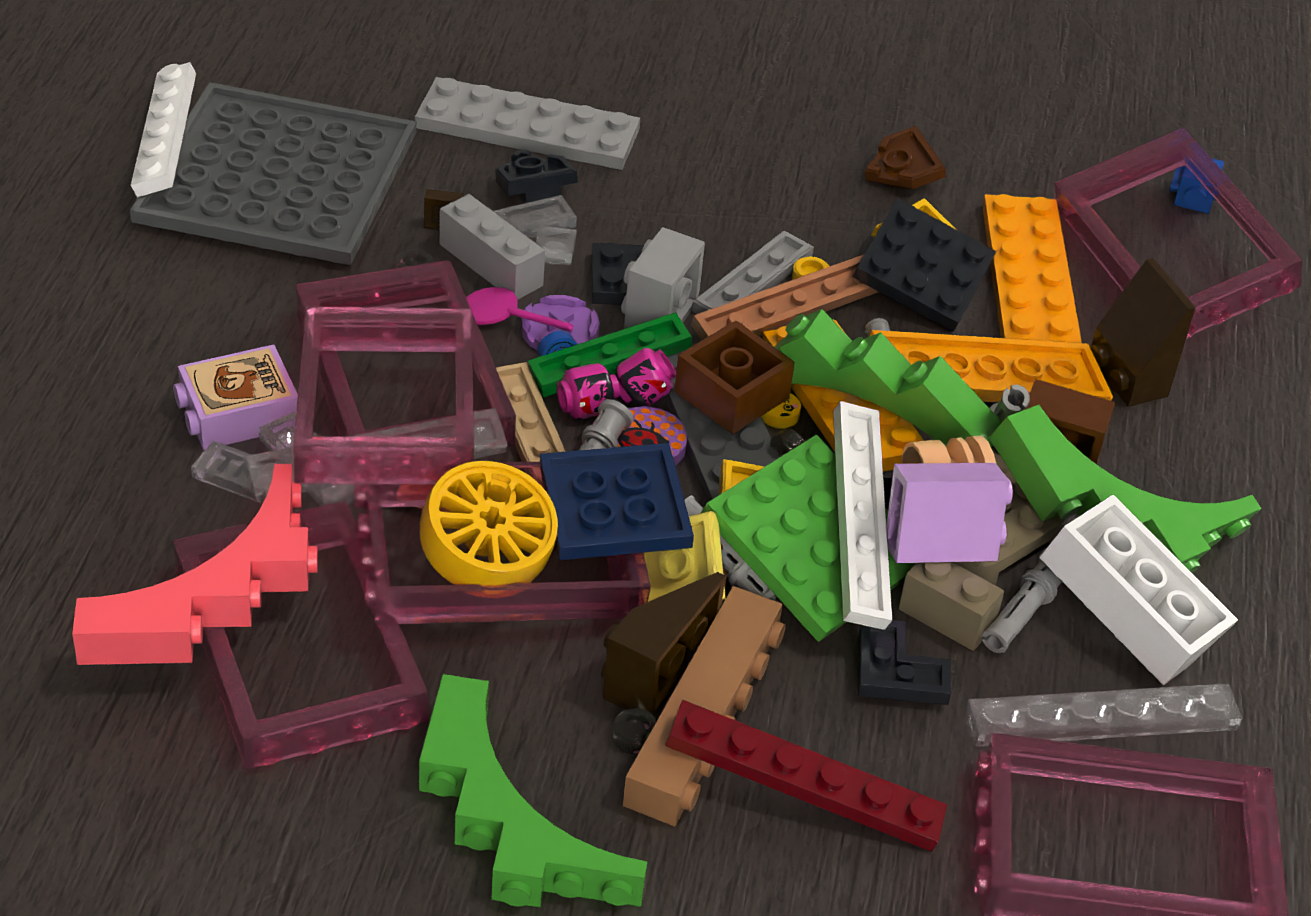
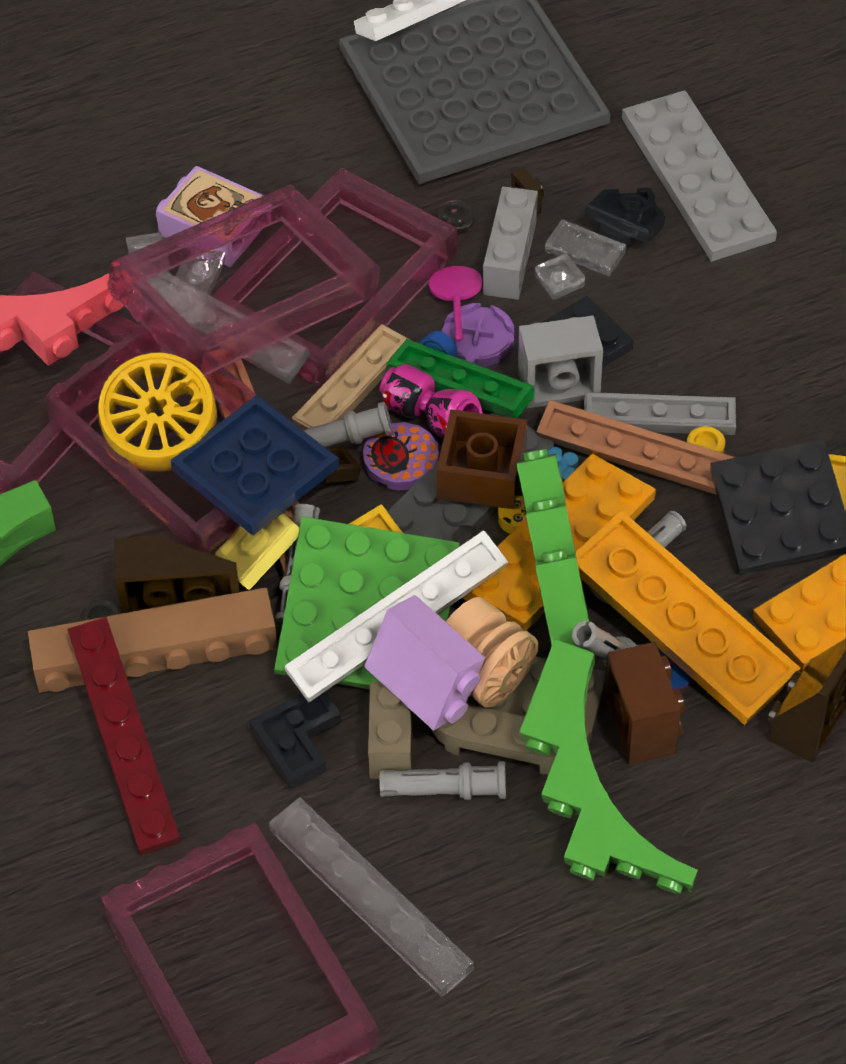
camera: 60 degrees right, 10 degrees up
(1137, 588) = (498, 840): white slope -> none

